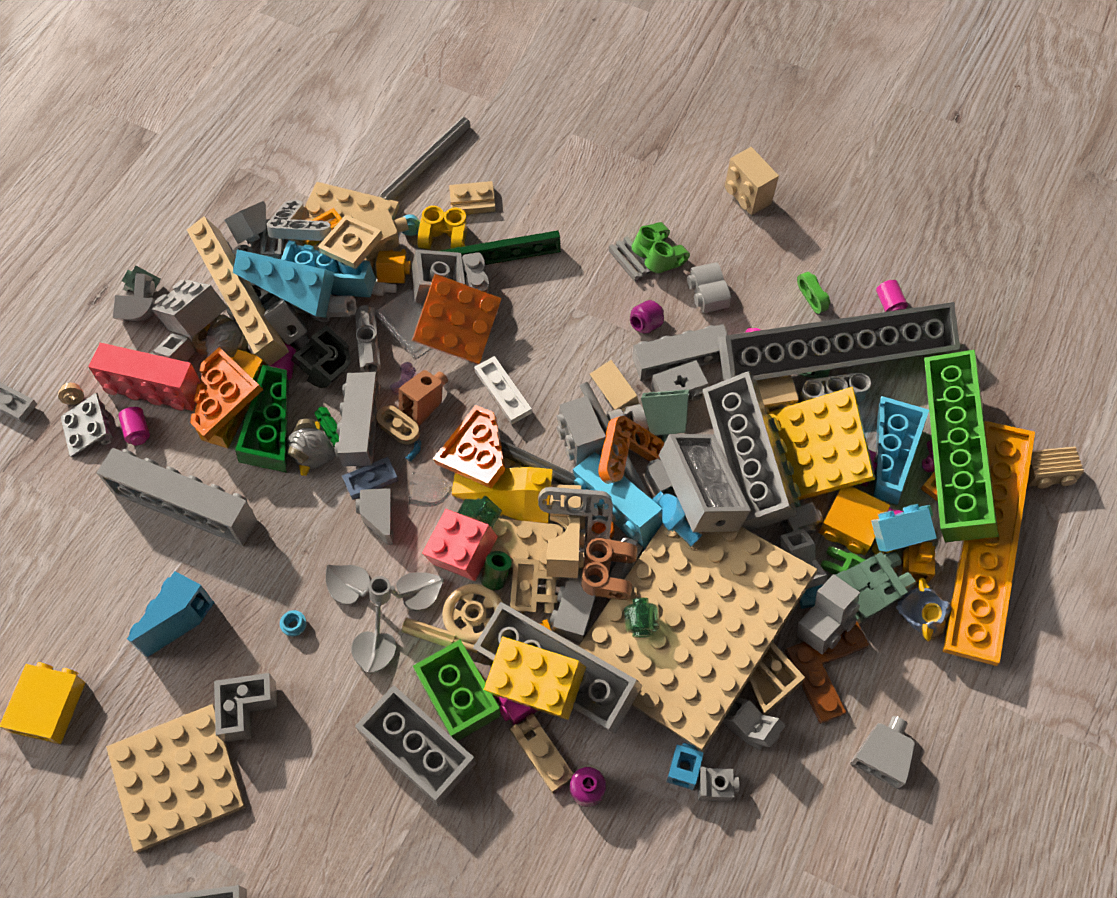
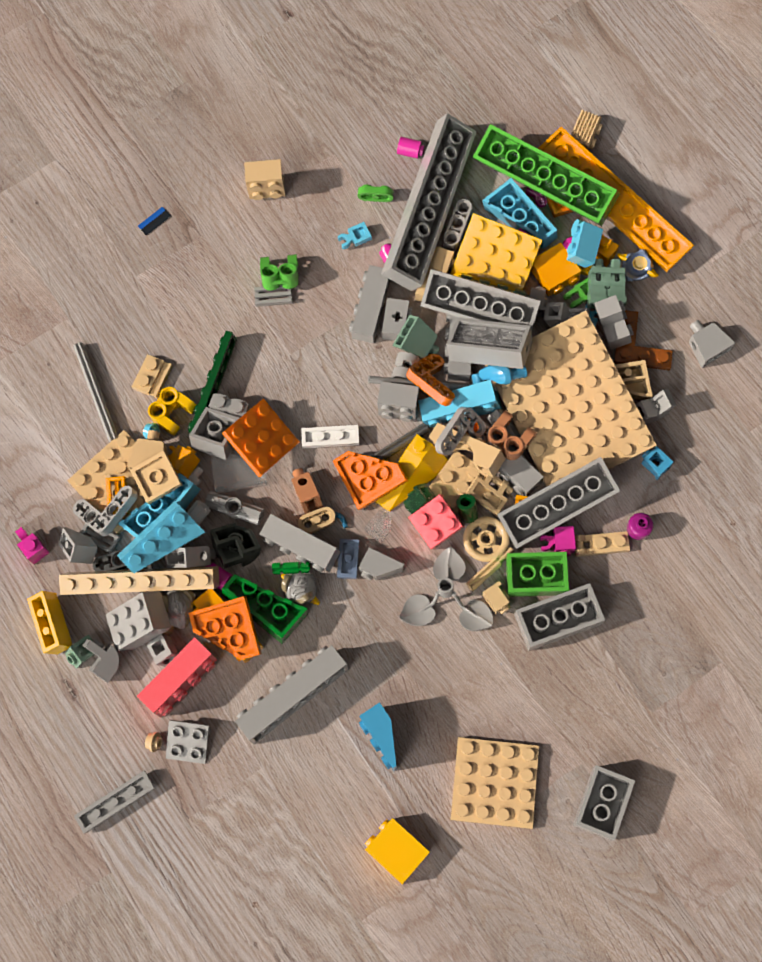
camera: 55 degrees left, 10 degrees up
(134, 425) = (210, 705): dark pink brick -> none
(154, 238) = (50, 622): none -> yellow brick
(228, 185) = (31, 546): none -> dark pink brick
(236, 700) = (466, 716): light grey brick -> none
(291, 616) = (428, 653): medium azure plate -> none
(402, 660) = (497, 598): none -> tan brick
(408, 373) = (282, 497): clear purple arm -> none
(535, 678) = (565, 517): yellow brick -> none
(614, 386) = (373, 361): tan hinge -> none
(641, 119) = (154, 221): none -> black sticker
(641, 618) = (556, 433): clear green head -> none
(647, 317) = (330, 310): magenta head -> none
(709, 287) = (331, 257): light grey brick -> none
(709, 791) = (678, 455): light grey brick -> none
(752, 300) = (357, 234): none -> medium azure plate

